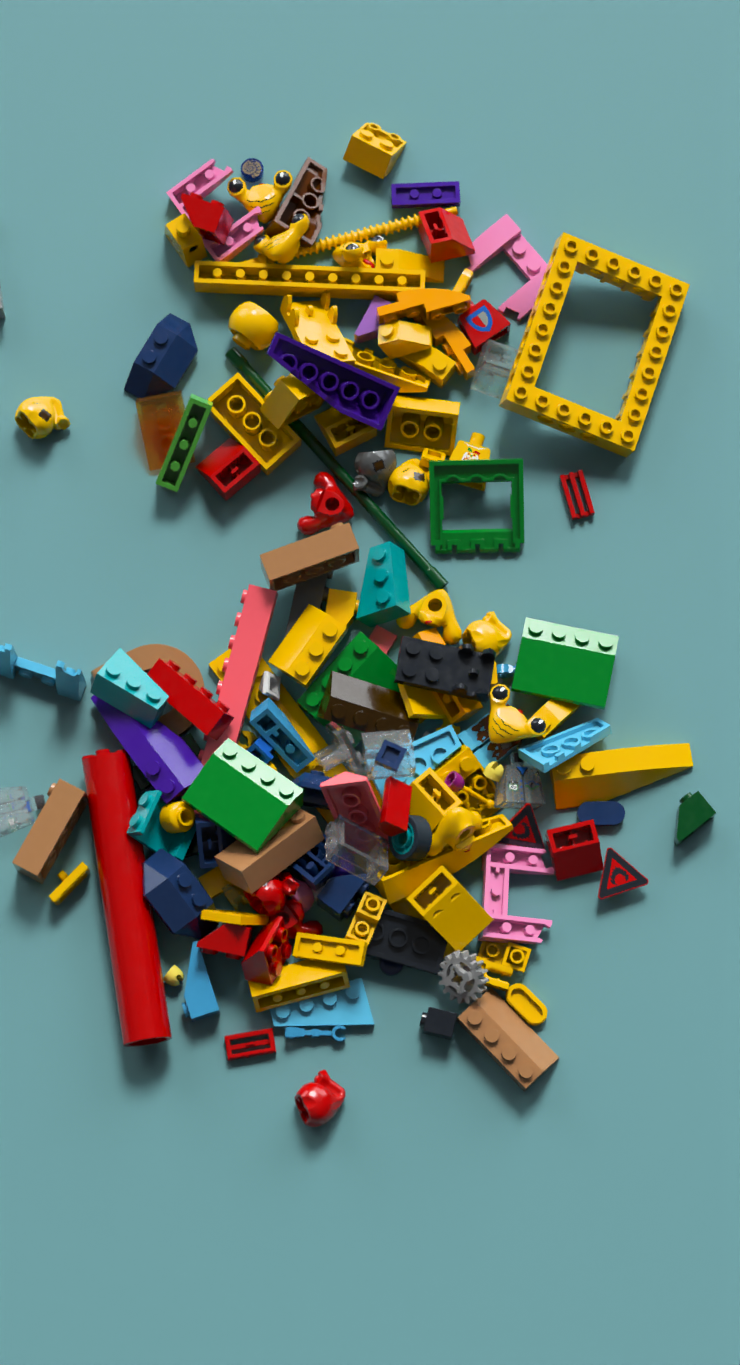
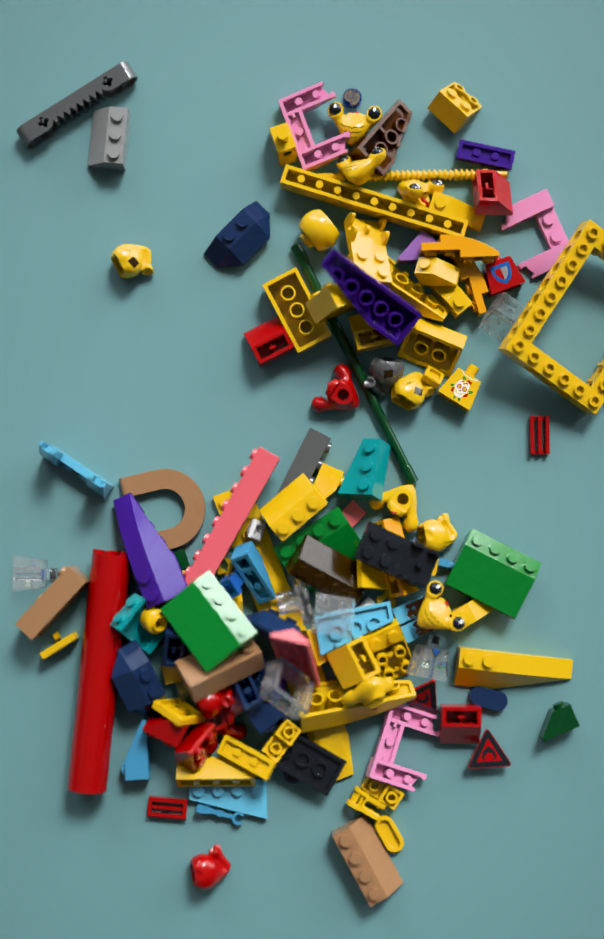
camera: 15 degrees right, 10 degrees up
(129, 689) = (143, 506): teal wedge -> none
(158, 421) = (227, 297): clear orange slope -> none
(172, 976) = (119, 739): light yellow hinge -> none
(184, 442) = (238, 314): bright green brick -> none
(190, 700) = (187, 526): red brick -> none
(208, 218) = (304, 132): red slope -> none
(310, 557) = (313, 437): medium nougat brick -> none
(390, 756) = (333, 625): dark blue plate -> none
(395, 807) = (327, 664): red brick -> none
(413, 843) = (332, 688): black wheel -> none
(438, 1023) = (317, 832): black brick -> none
(450, 908) = (348, 750): yellow slope -> none
(456, 784) = (380, 651): magenta hinge -> none
(463, 976) = (345, 806): light grey gear -> none
(464, 281) = (496, 236): yellow tile -> none
(476, 472) = (464, 398): green hinge -> none
(494, 771) = (413, 648): light yellow hinge -> none
(562, 746) = (474, 641): medium azure wing -> none

